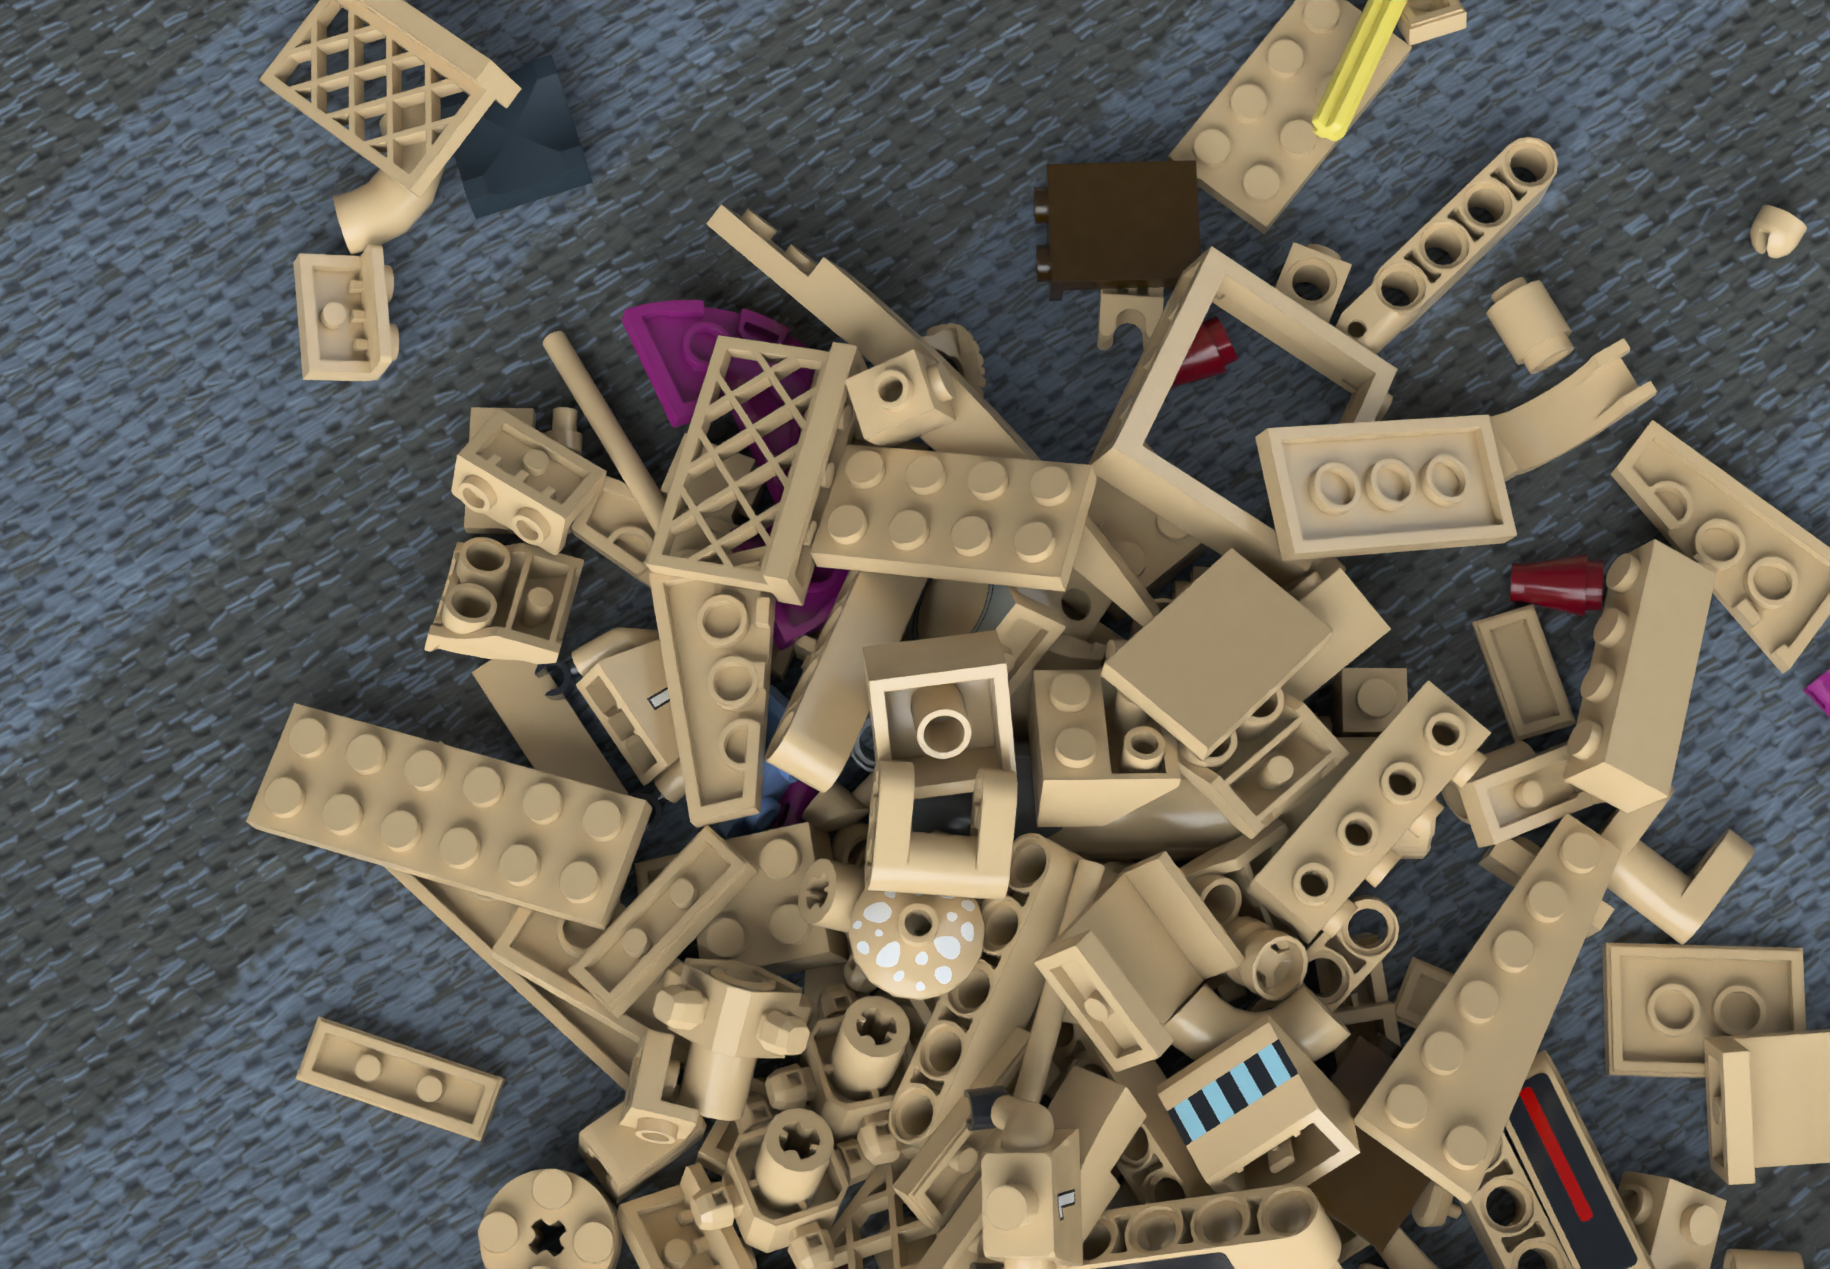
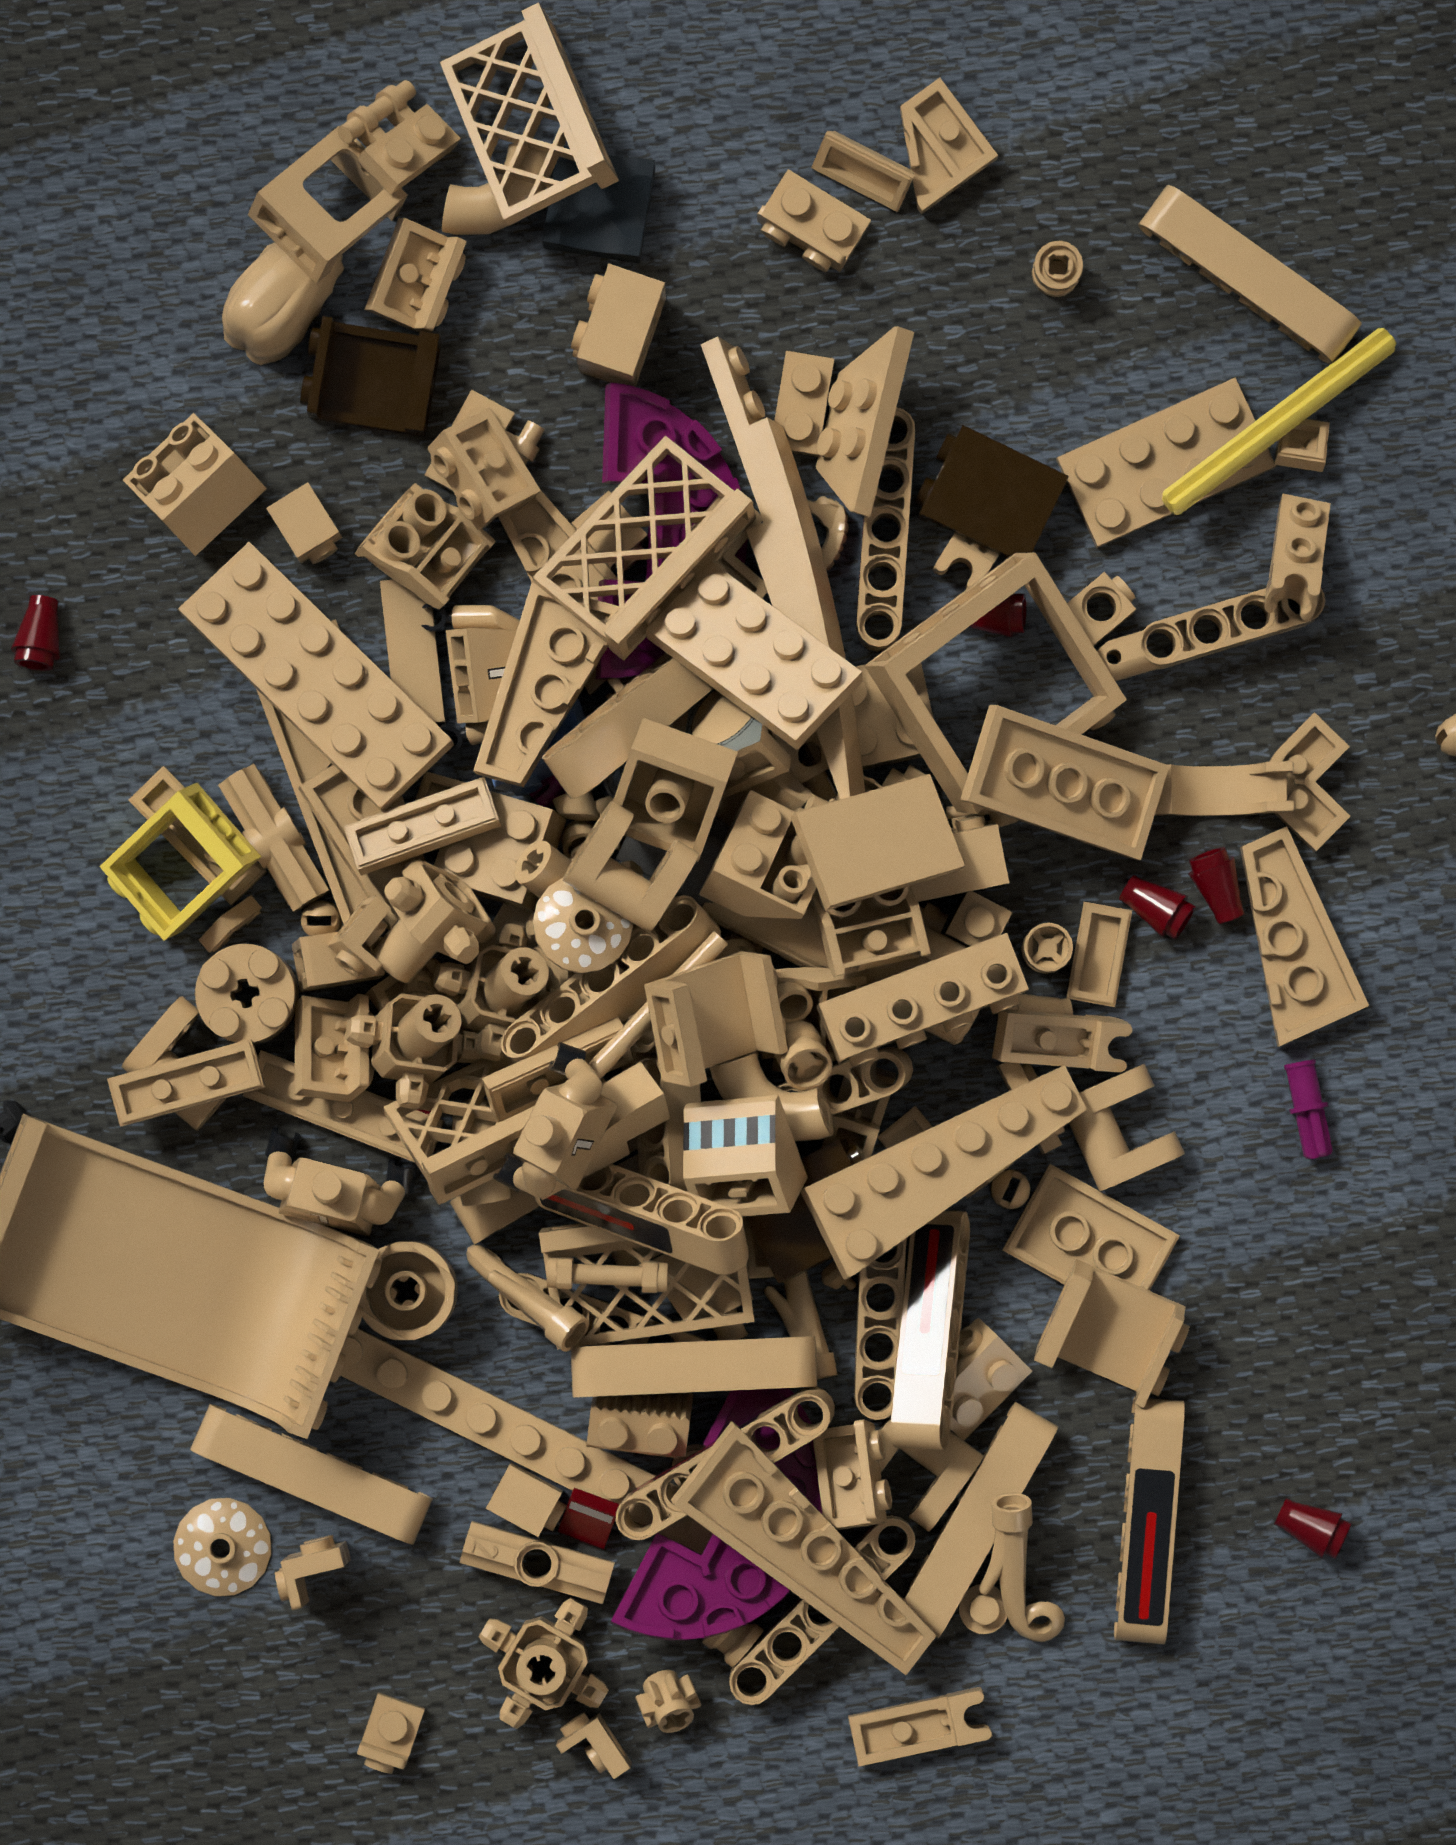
camera: 25 degrees right, 10 degrees up
(95, 942) = (38, 635): none -> dark red cone
(188, 314) = (303, 225): none -> tan window
(199, 411) = (274, 305): none -> tan hair
(199, 670) = (194, 483): none -> tan slope
(265, 175) = (406, 149): none -> tan plate
(349, 451) = (371, 377): none -> dark brown panel
(351, 650) = (305, 525): none -> tan brick
(411, 1060) = (214, 834): none -> light yellow window
(487, 1162) = (230, 922): none -> tan tile
(493, 1033) = (274, 837): none -> tan piece
(589, 1090) = (319, 909): none -> tan hinge
(600, 244) = (620, 326): none -> tan brick
(606, 426) = (558, 455): tan bar -> none
(762, 45) = (813, 222): none -> tan bracket
(854, 234) = (803, 400): none -> tan plate
(902, 398) = (763, 553): tan brick -> none
(932, 211) = (862, 419): none -> tan wing
(1015, 297) = (887, 554): none -> tan beam
(1470, 684) = (1052, 942): none -> tan wheel
(1497, 120) = (1298, 554): none -> tan plate
(1530, 324) = (1242, 713): tan brick -> none
(1568, 1002) = (1001, 1184): none -> tan hinge
(1607, 519) = (1217, 881): none -> dark red cone
(1640, 677) = (1168, 998): tan brick -> none
(1680, 388) = (1313, 751): none -> tan plate

